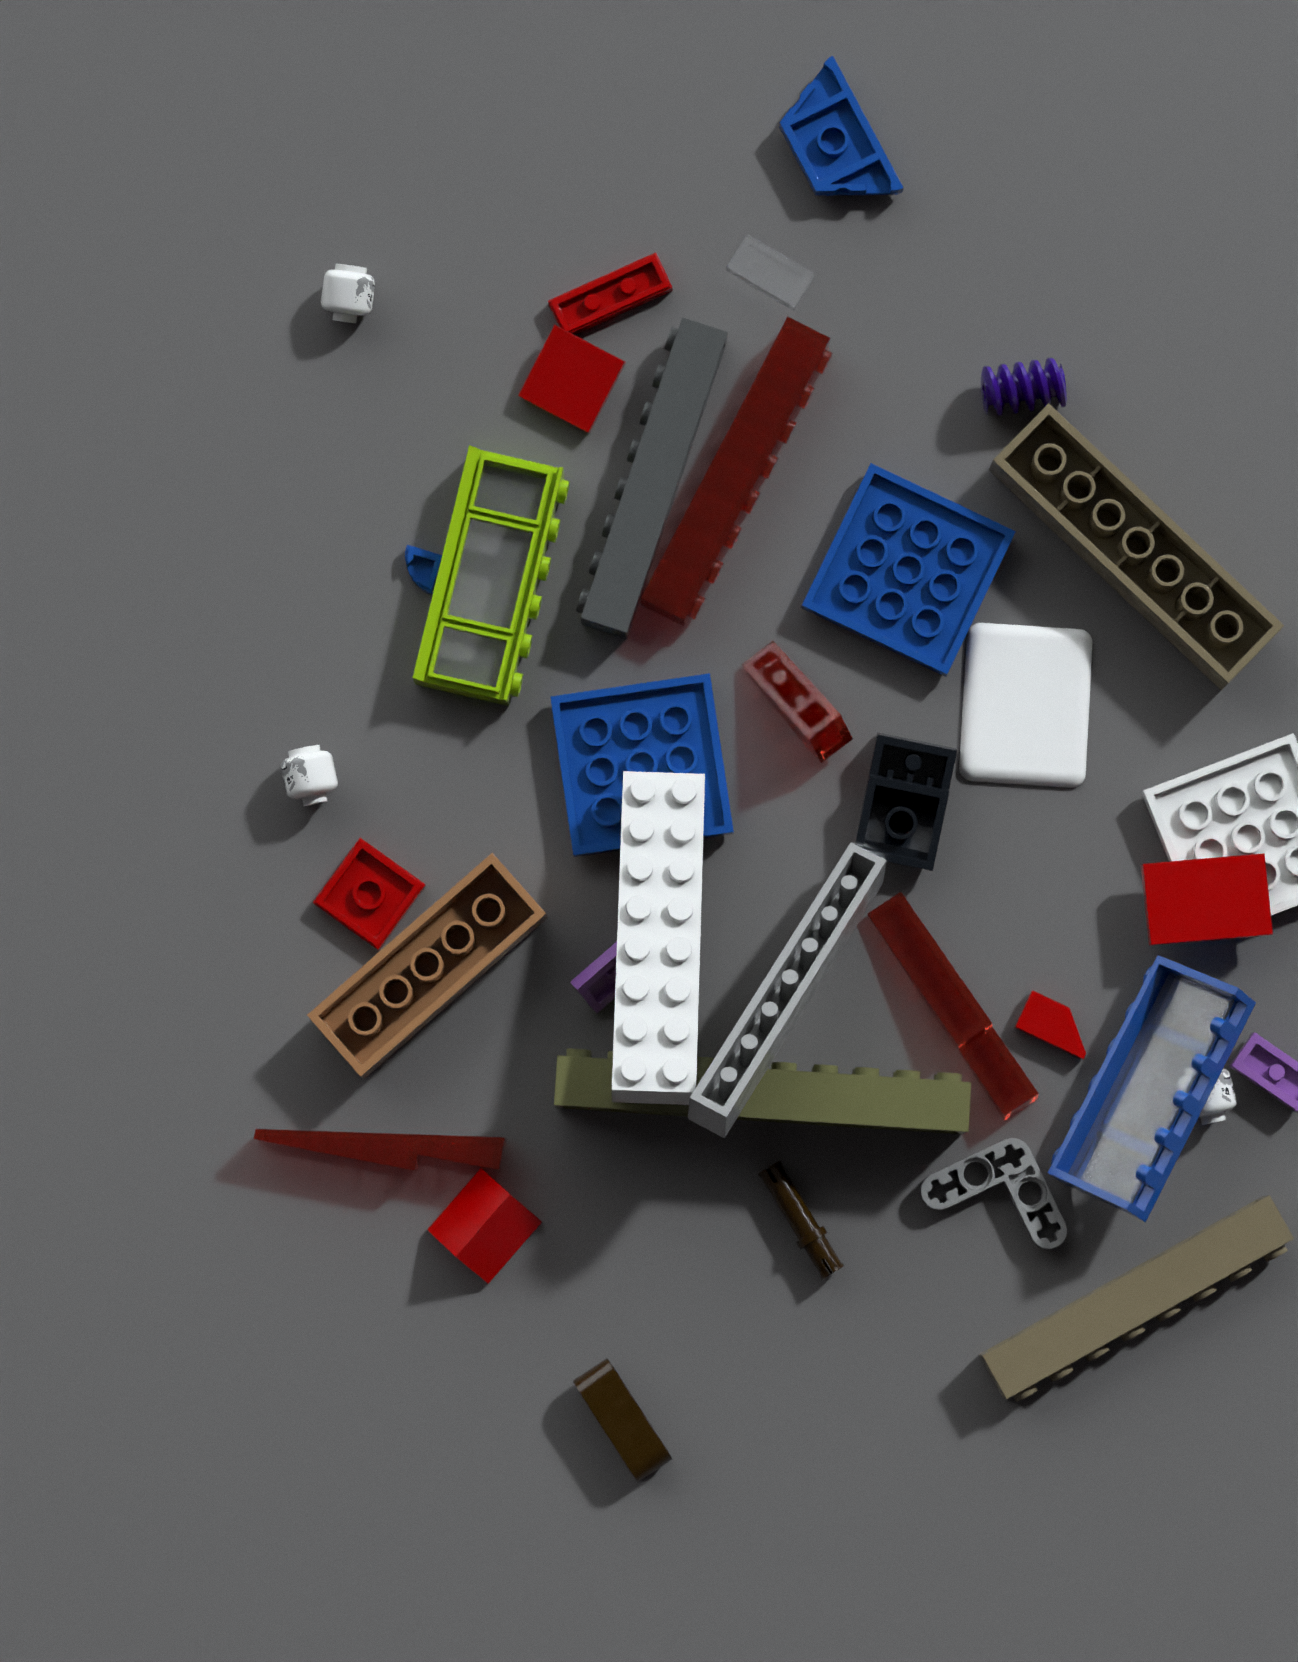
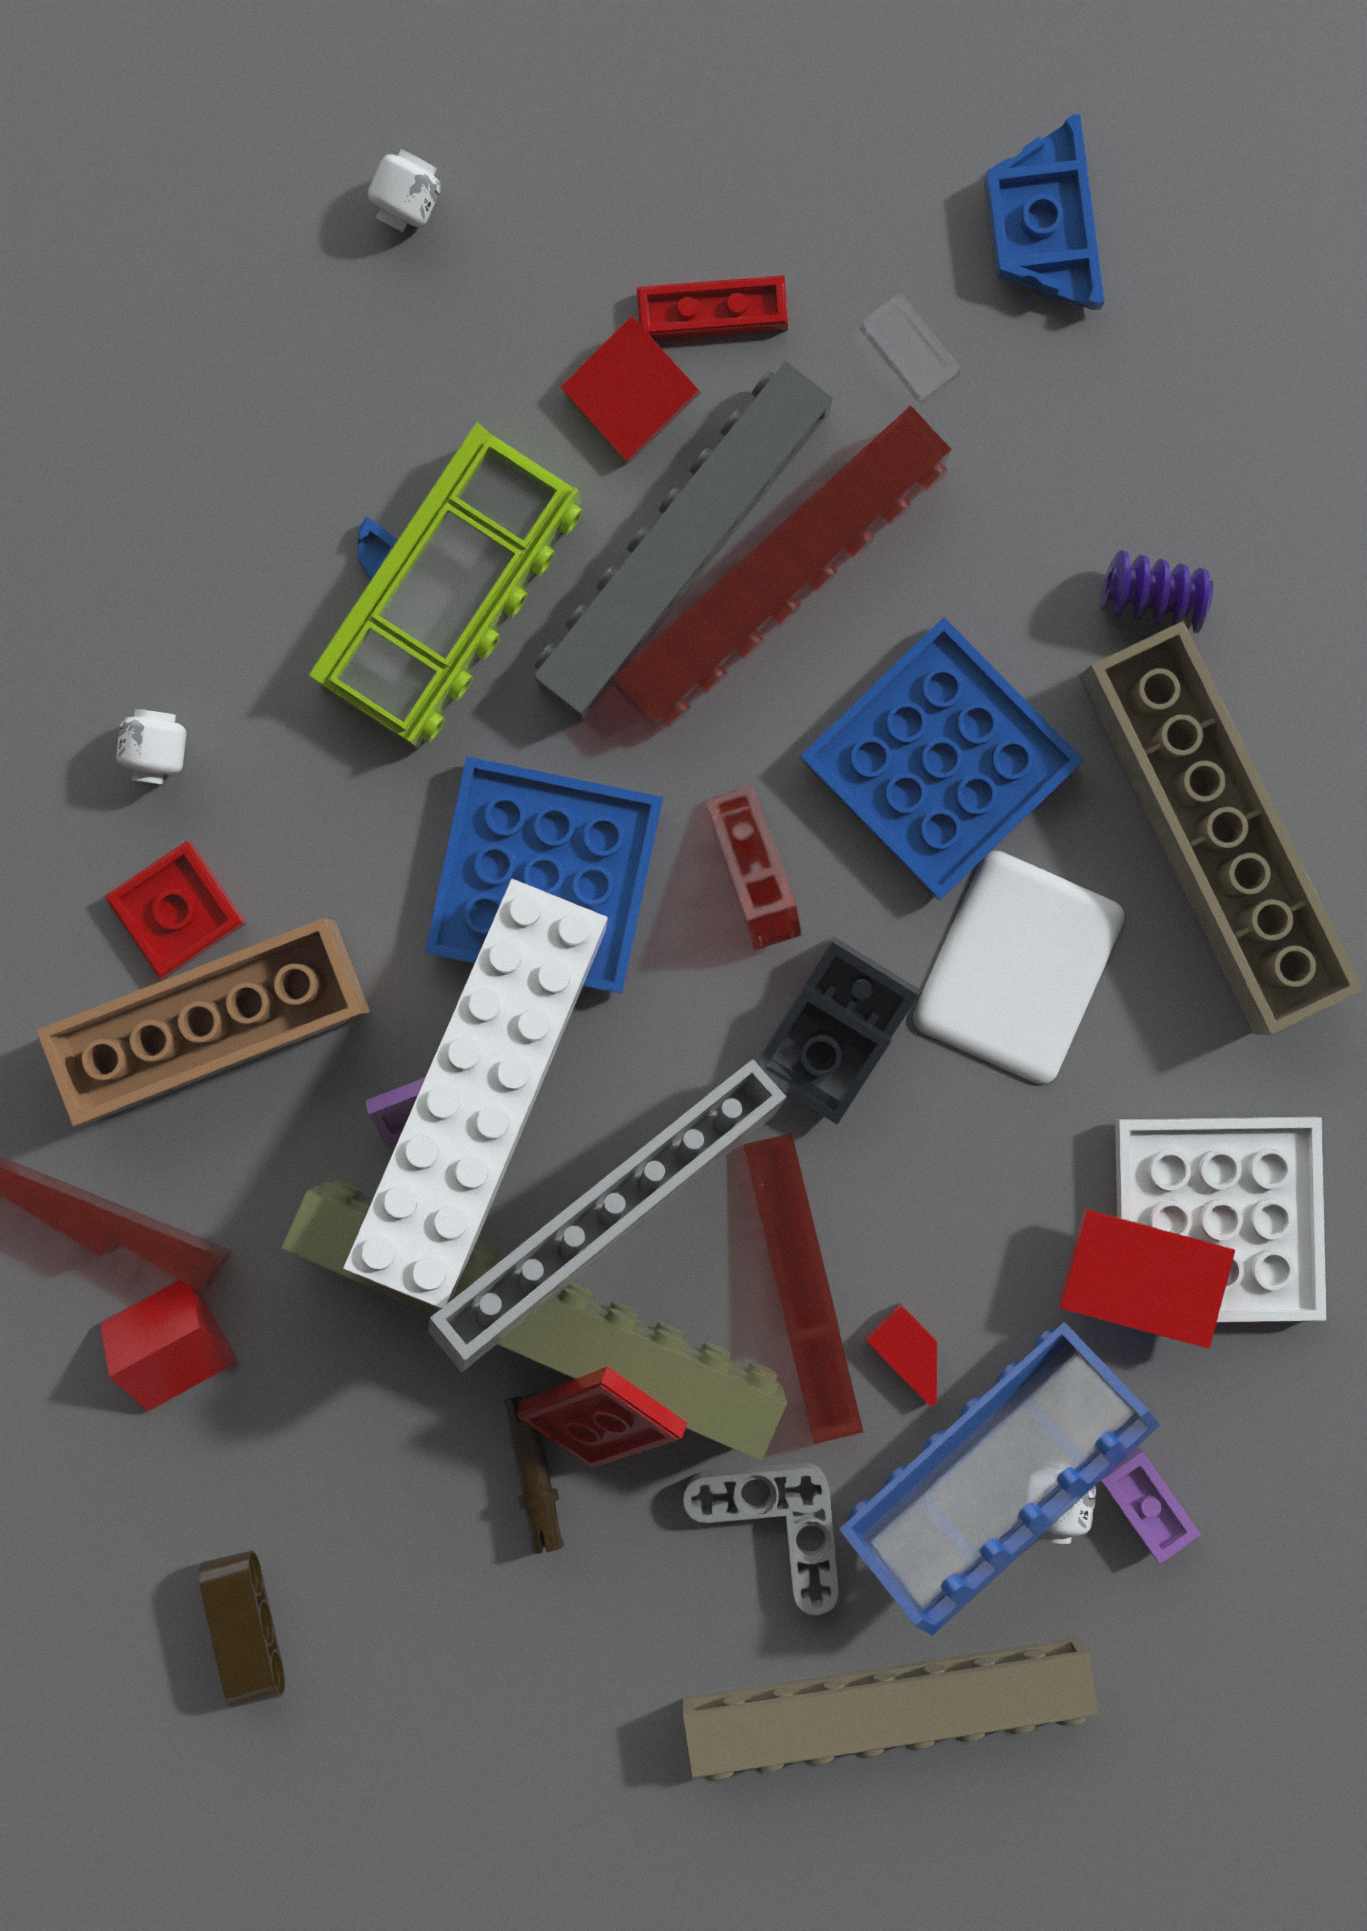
camera: 20 degrees right, 5 degrees up
(837, 1148) = (601, 1418): none -> red tile

